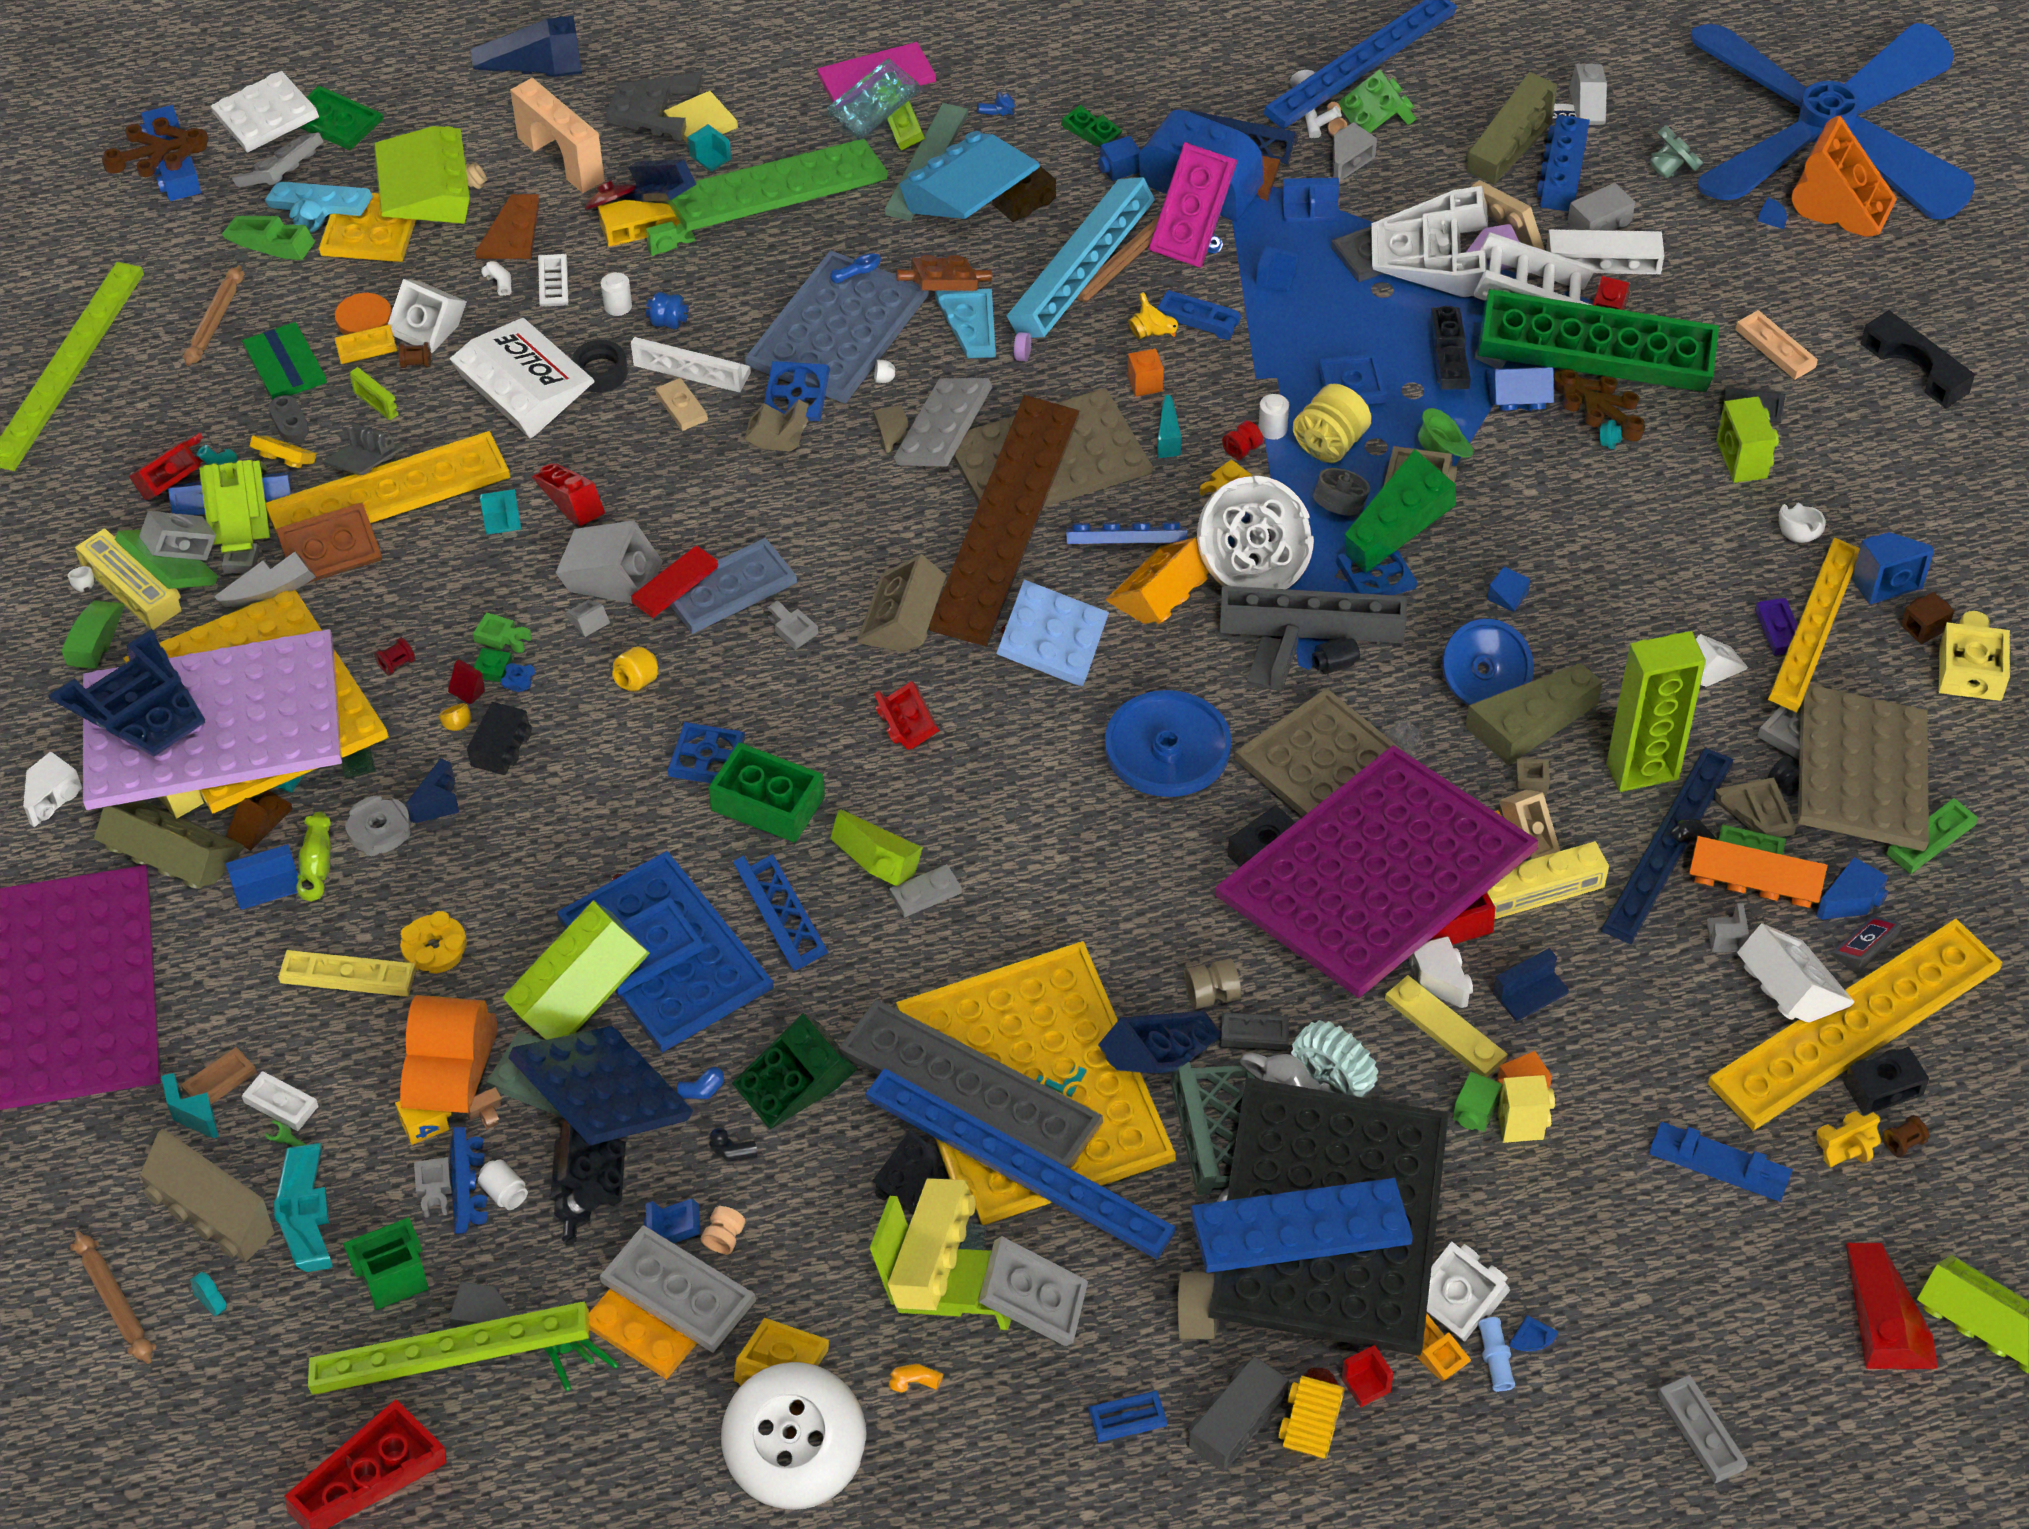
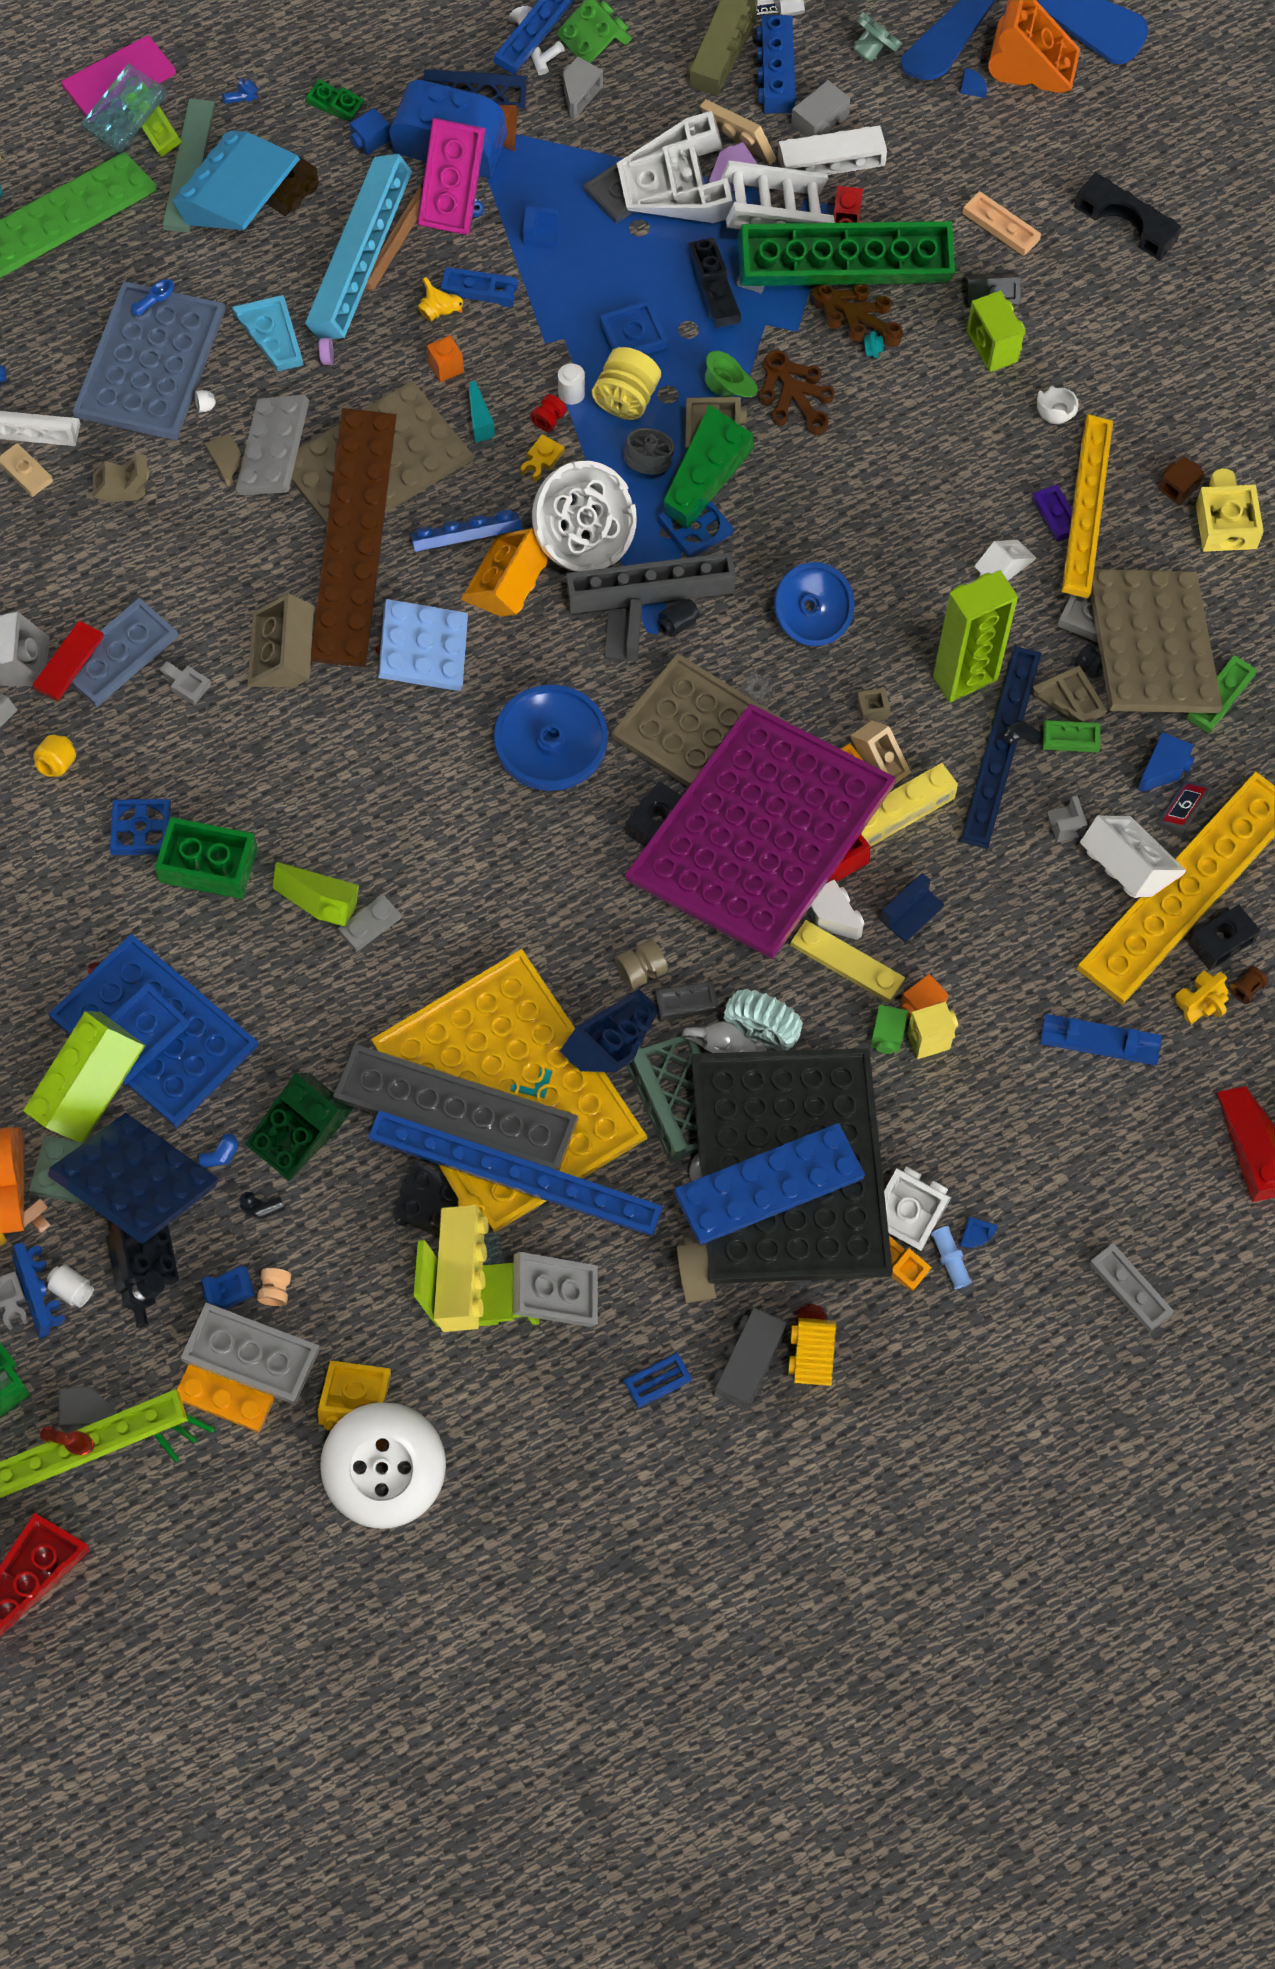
camera: 15 degrees left, 15 degrees up
(461, 1335) = (75, 1442): none -> clear red piece
(768, 910) = (236, 973): blue fence -> none
(800, 371) = (128, 417): blue piece -> none
(907, 716) = (311, 754): red bracket -> none
(914, 1373) = (469, 1382): light orange arm -> none
(944, 274) = (236, 288): dark orange plate -> none
(1310, 199) = (555, 145): blue panel -> none
(1336, 124) = (562, 59): light nougat piece -> none
(1367, 1376) = (850, 1302): red panel -> none
(1502, 436) = (795, 390): none -> reddish brown plant
(1508, 589) = (815, 521): blue slope -> none
(1521, 386) = (785, 310): slope -> none
(1533, 712) = (861, 642): olive wedge -> none
(1757, 870) = (1082, 760): orange brick -> none
(1891, 566) = (1142, 437): blue slope -> none

